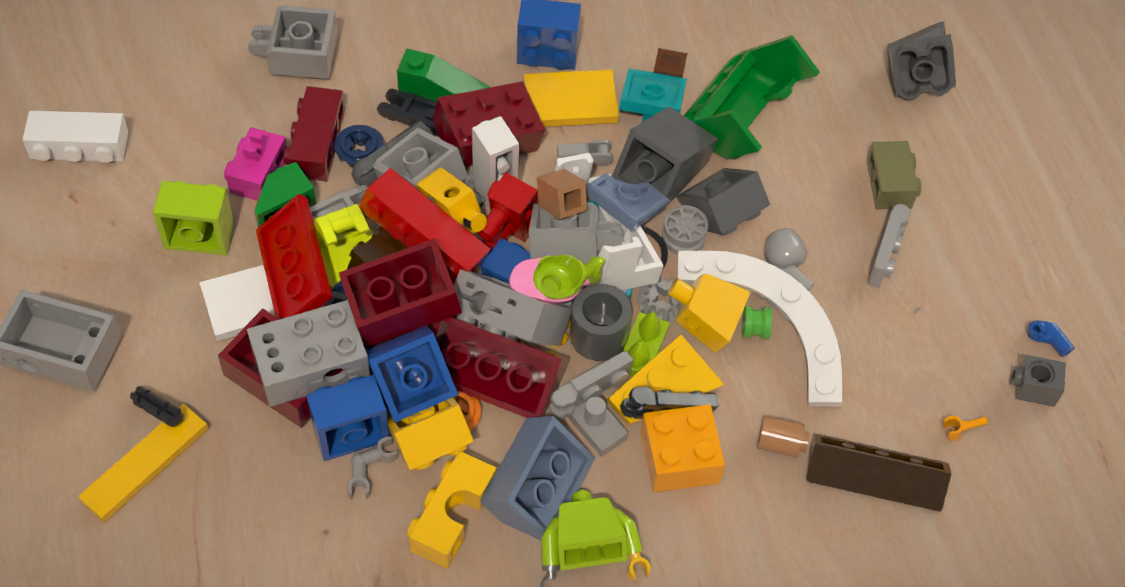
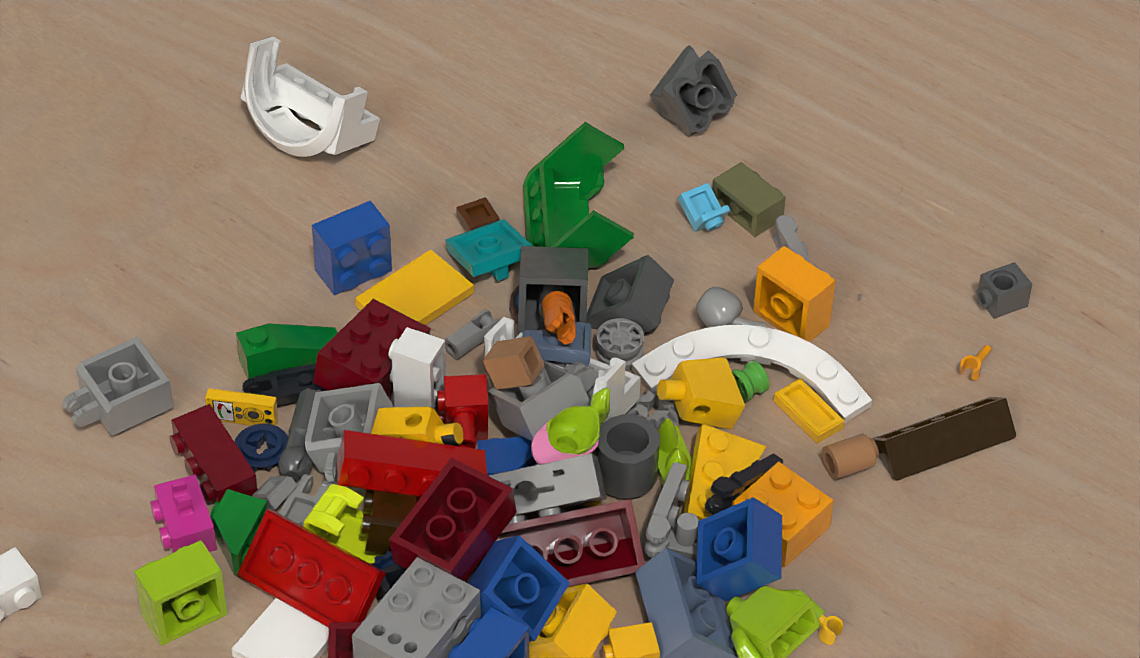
camera: 35 degrees left, 10 degrees down
(332, 184) = (275, 490): none -> light grey tile
(369, 108) = (243, 407): none -> yellow tile
(612, 456) = (739, 549): none -> blue brick
(639, 178) = (559, 316): none -> orange hinge
(787, 377) = (808, 411): none -> yellow tile
(849, 161) = (703, 208): none -> medium azure bracket
(851, 275) = (794, 295): none -> light orange brick
(1051, 334) = (979, 251): blue arm -> none

